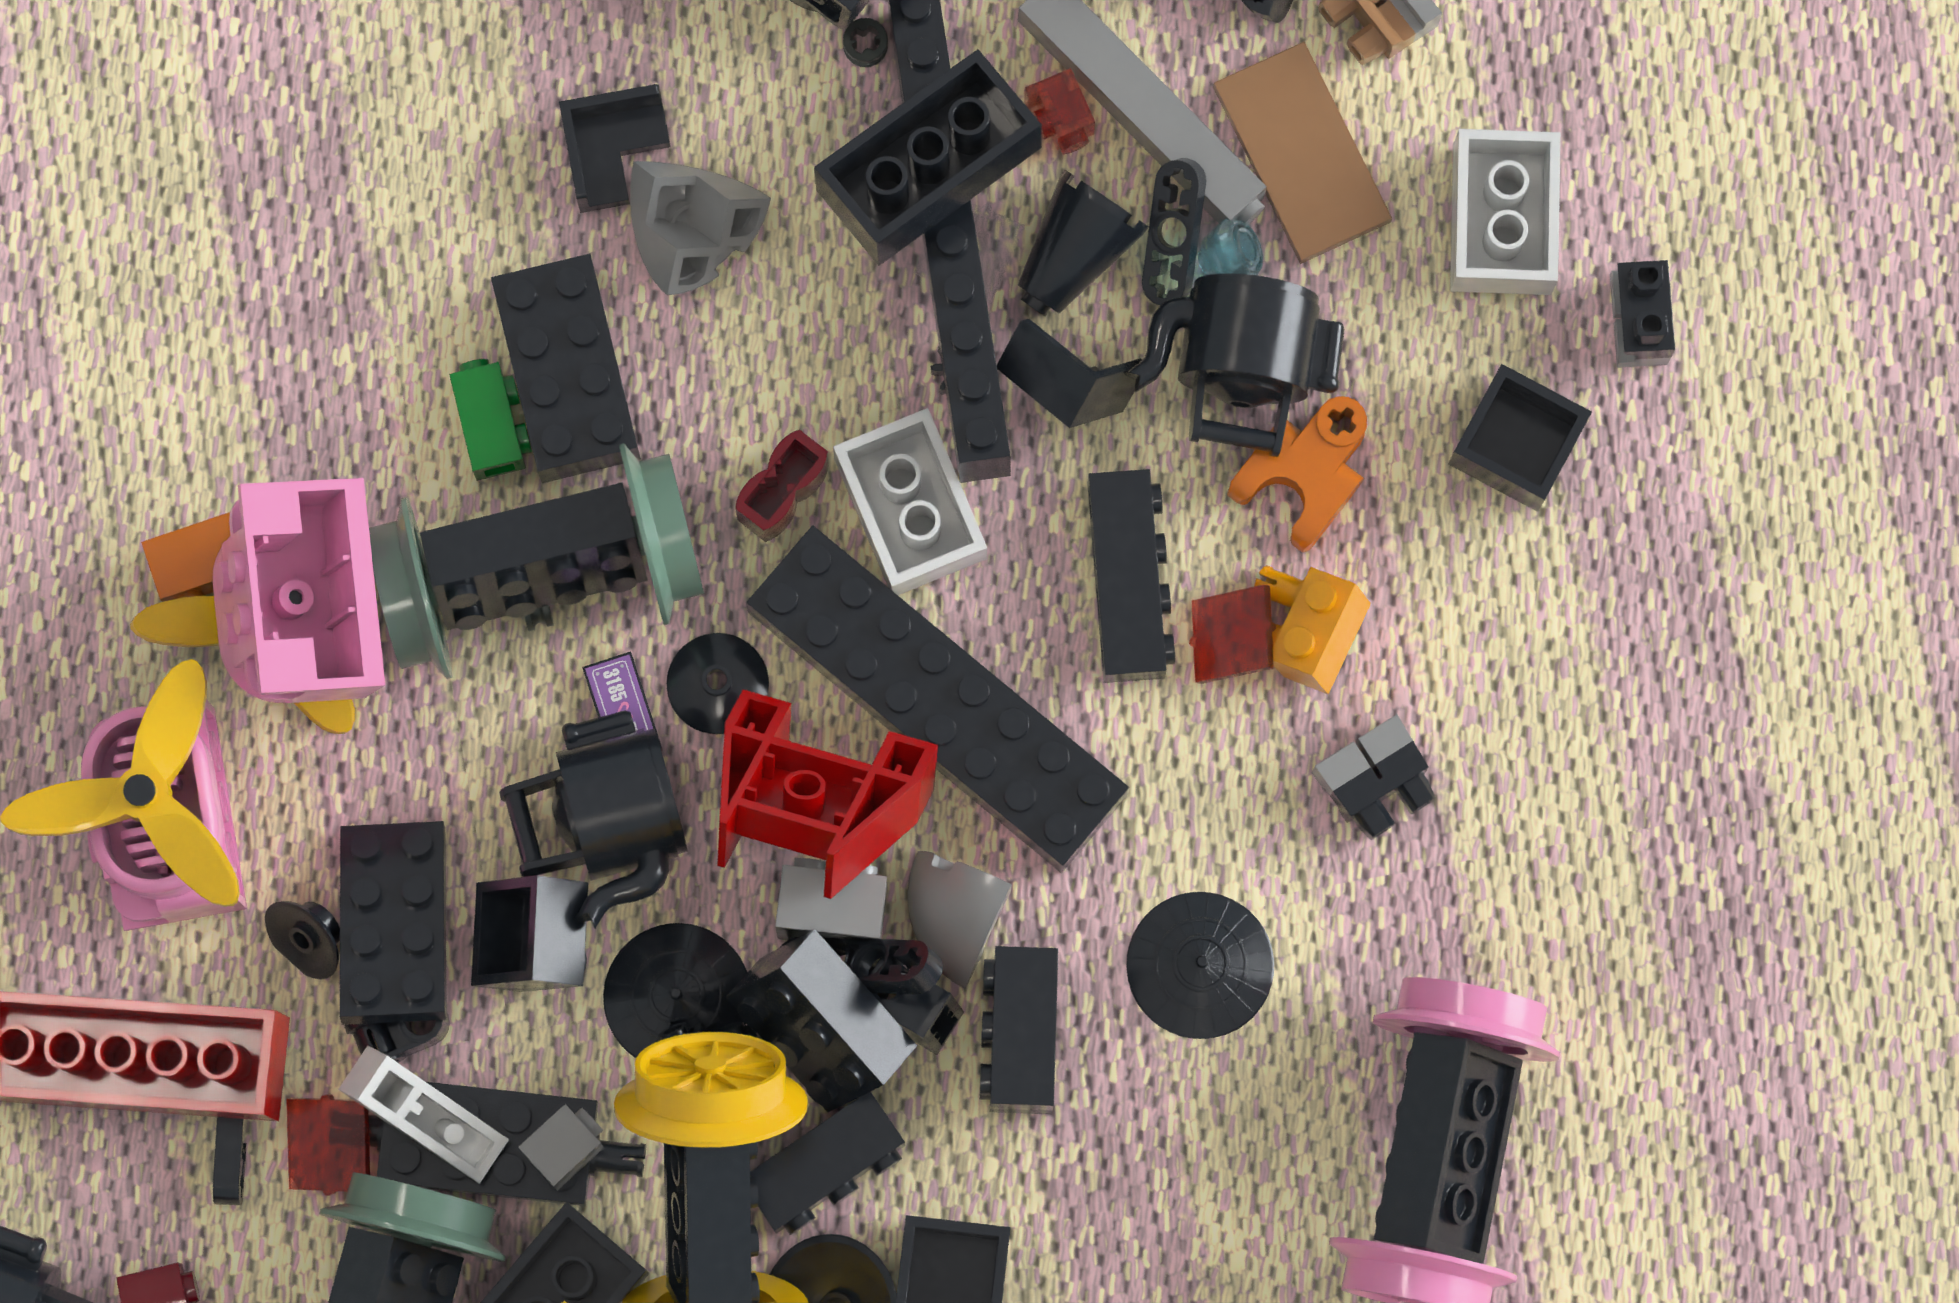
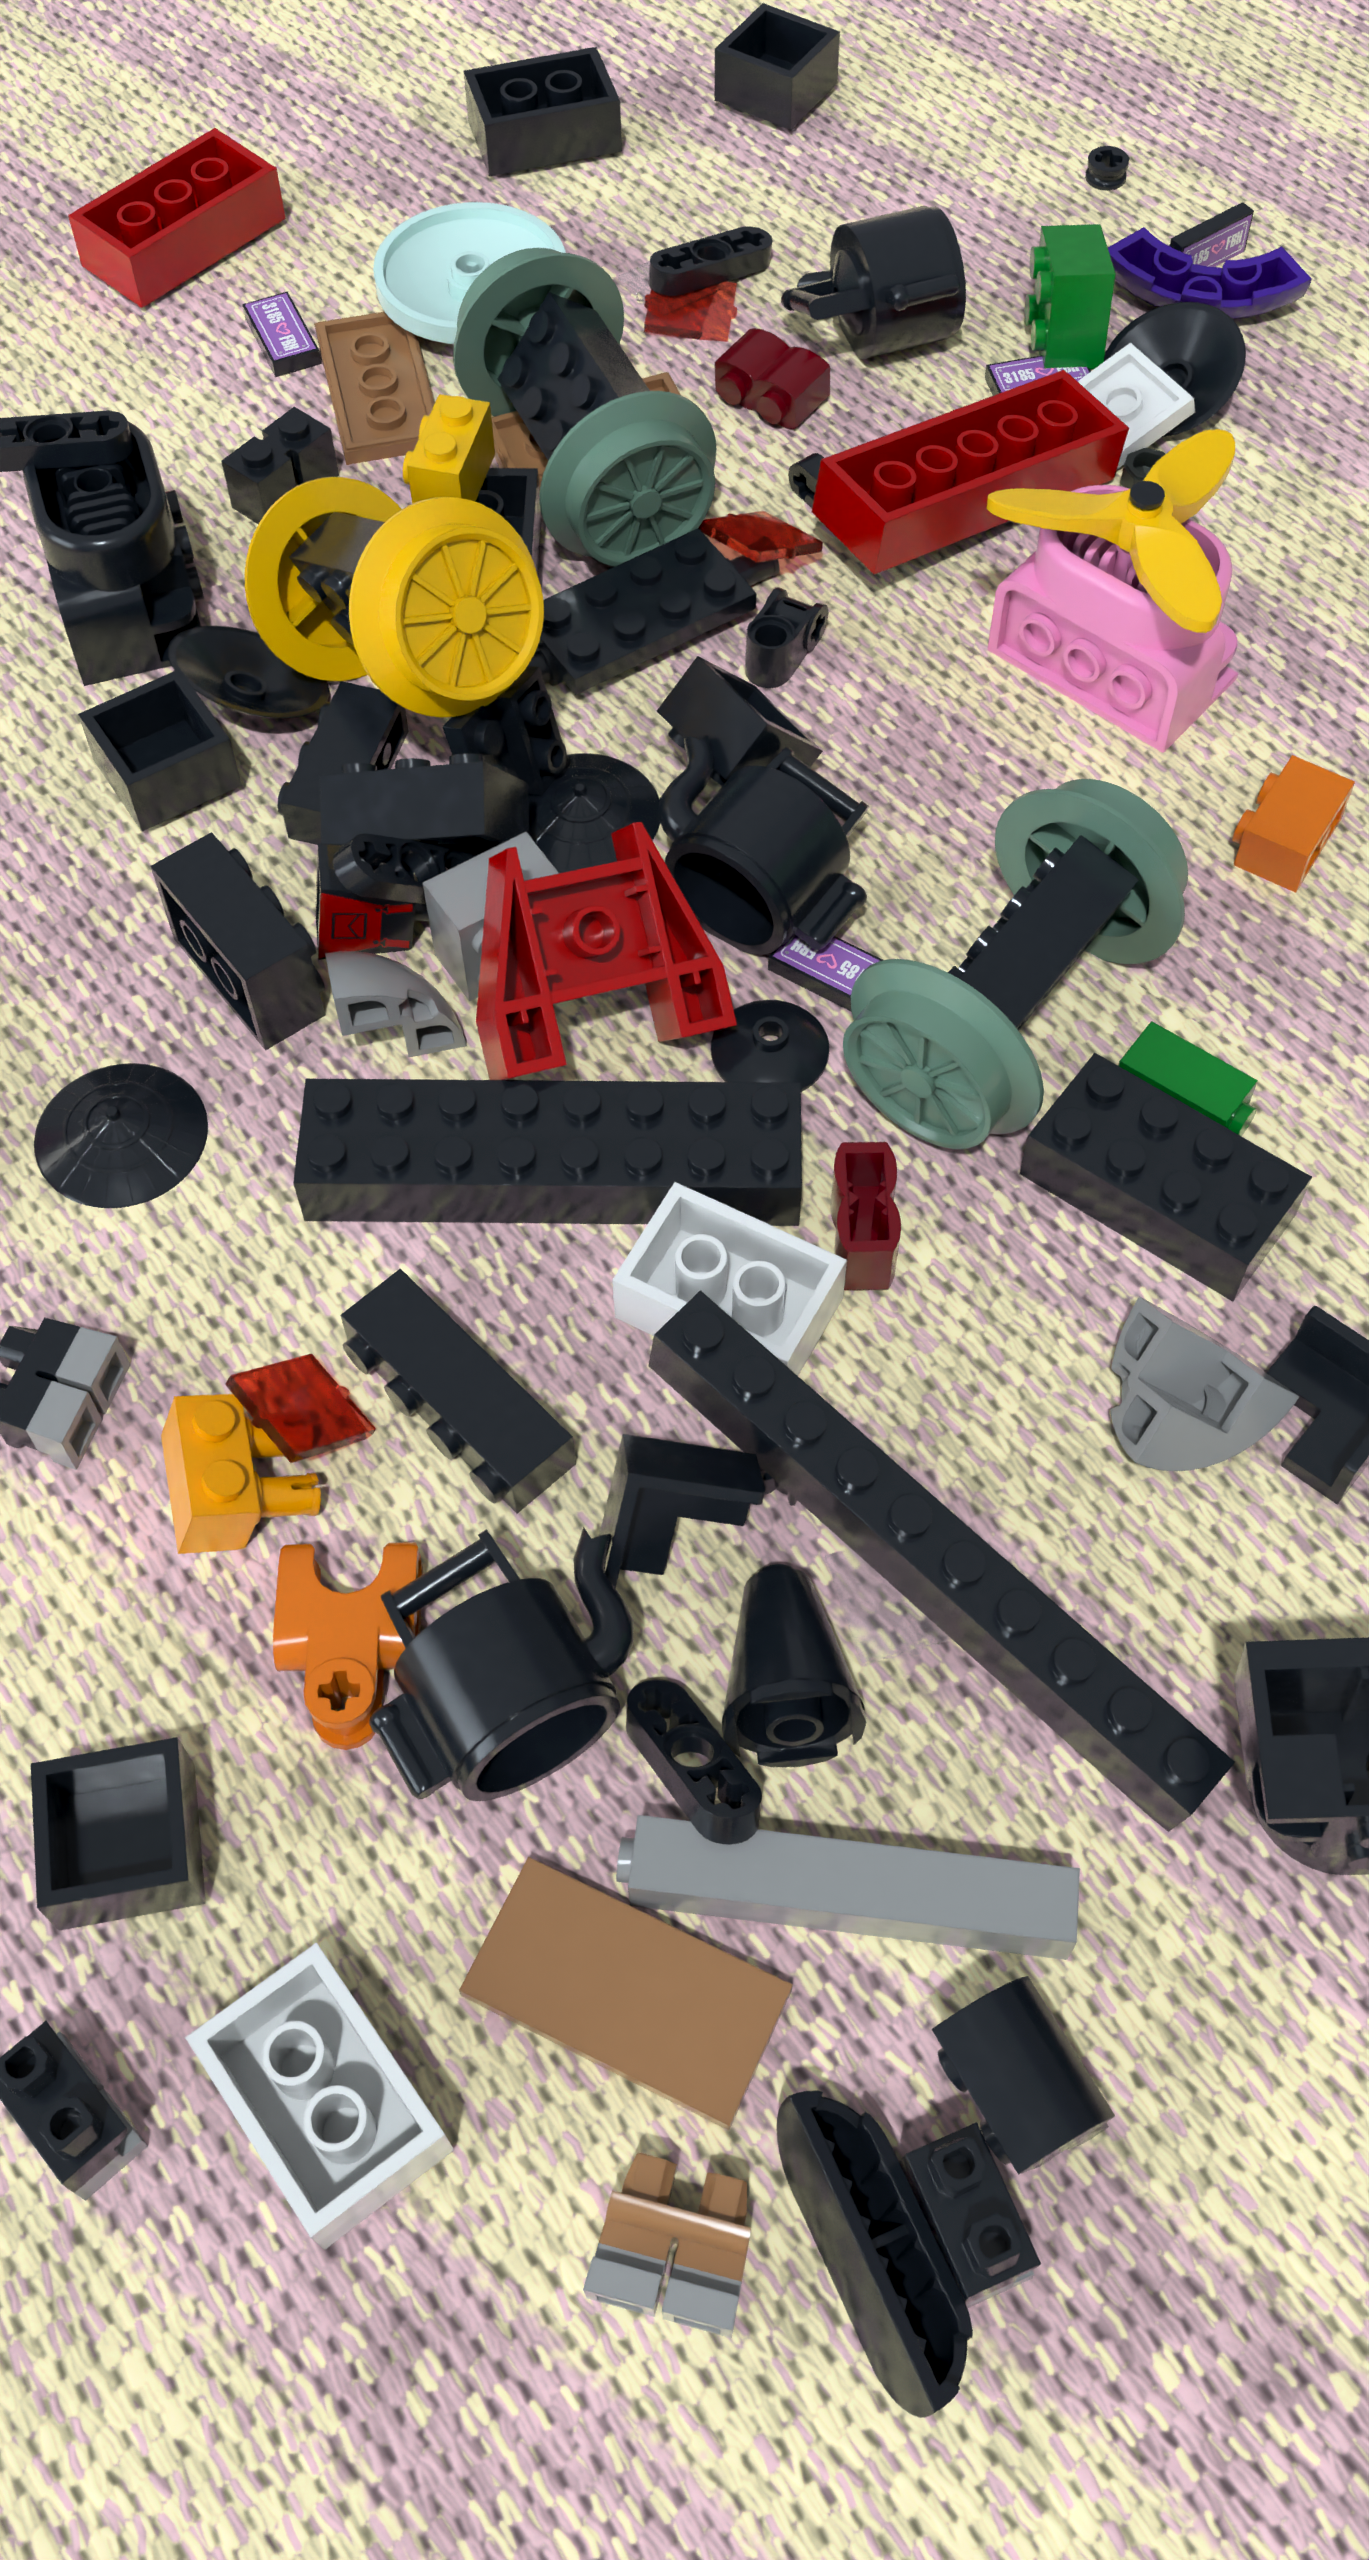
camera: 145 degrees right, 20 degrees down
(289, 600) = (1195, 744): bright pink brick -> none
(305, 936) = (920, 641): black piece -> none
(393, 923) = (861, 684): black plate -> none
(423, 1113) = (708, 556): white slope -> none
(563, 1145) = (570, 603): light grey brick -> none
(868, 57) = (1217, 1702): pearl dark grey bush -> none
(928, 157) = (1013, 1555): black brick -> none
(1061, 111) = (928, 1803): clear red brick -> none
(1231, 249) = (607, 1794): clear light blue cone -> none

